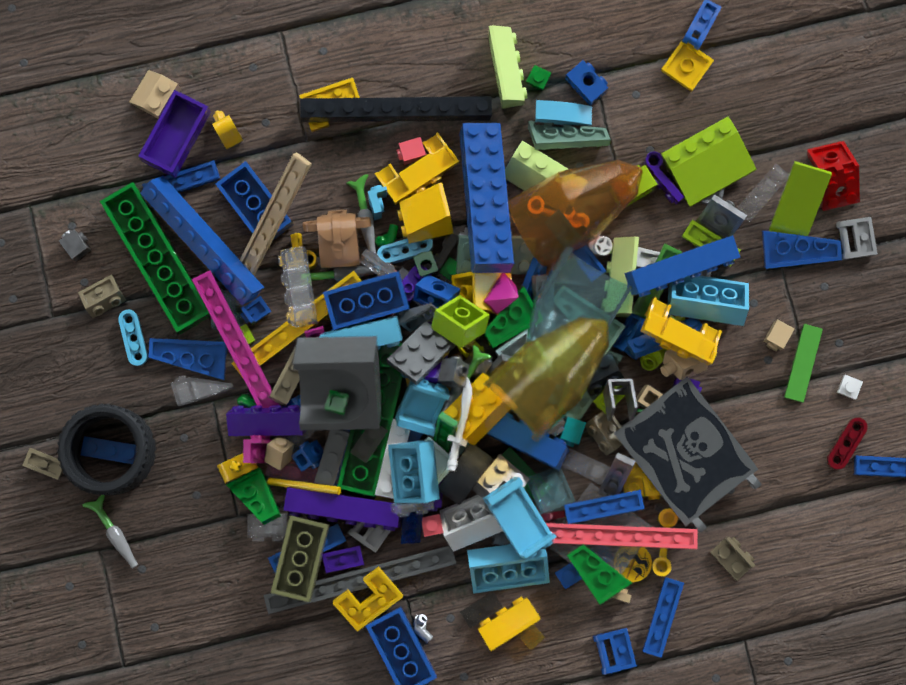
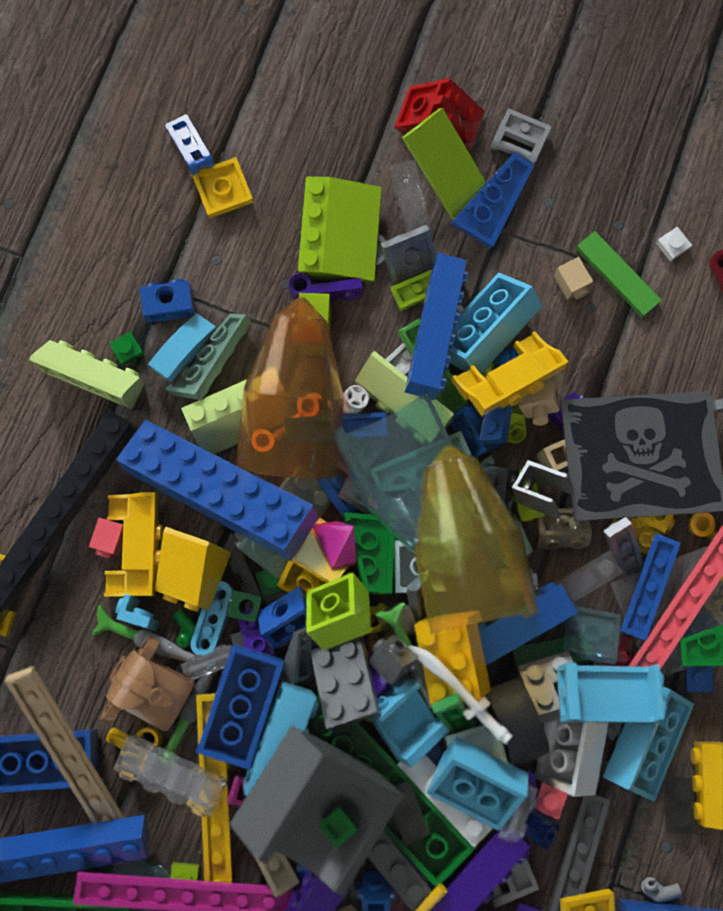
camera: 55 degrees left, 5 degrees down
(255, 311) = (164, 843): blue bracket -> none
(573, 431) = (543, 565): teal brick -> none

